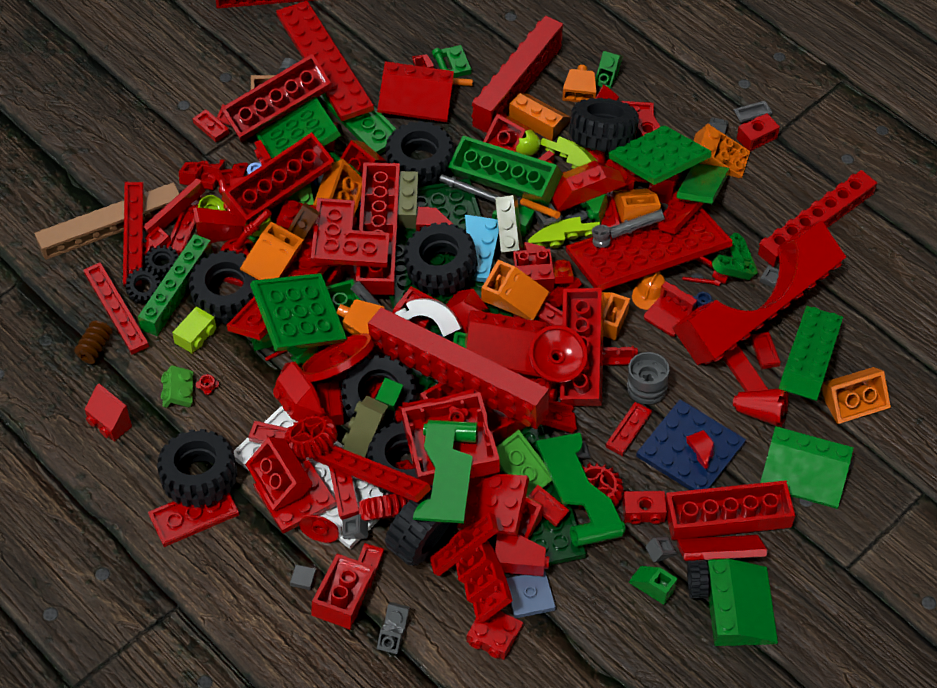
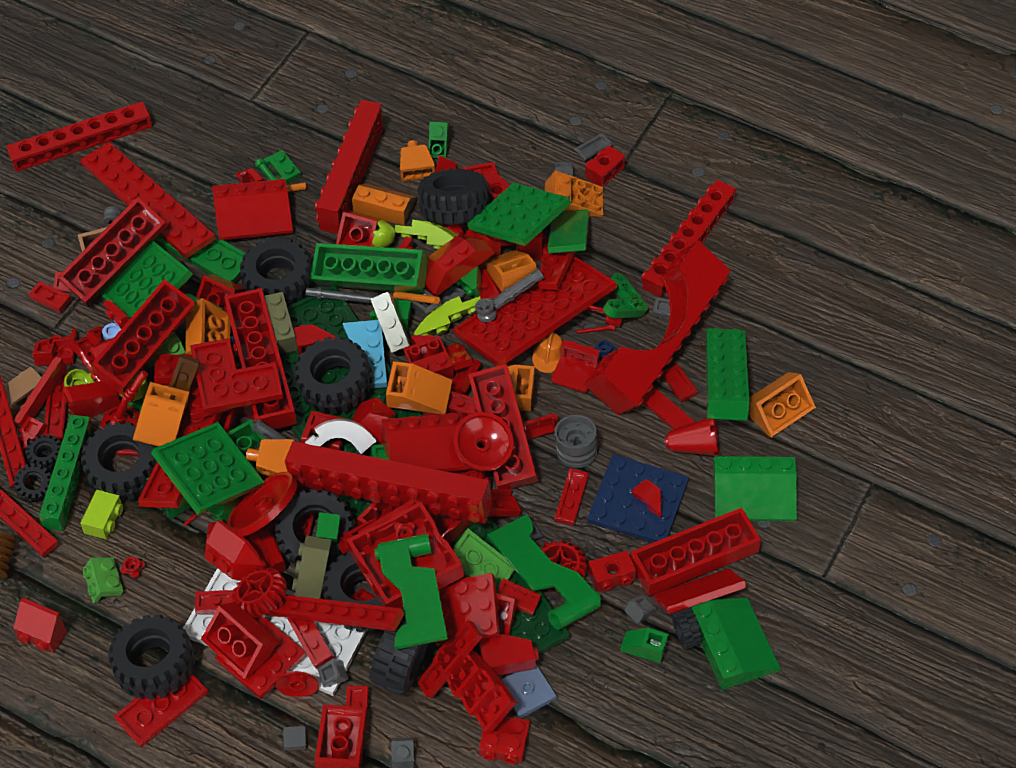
camera: 15 degrees left, 0 degrees up
(381, 507) = (356, 644): red gear -> none

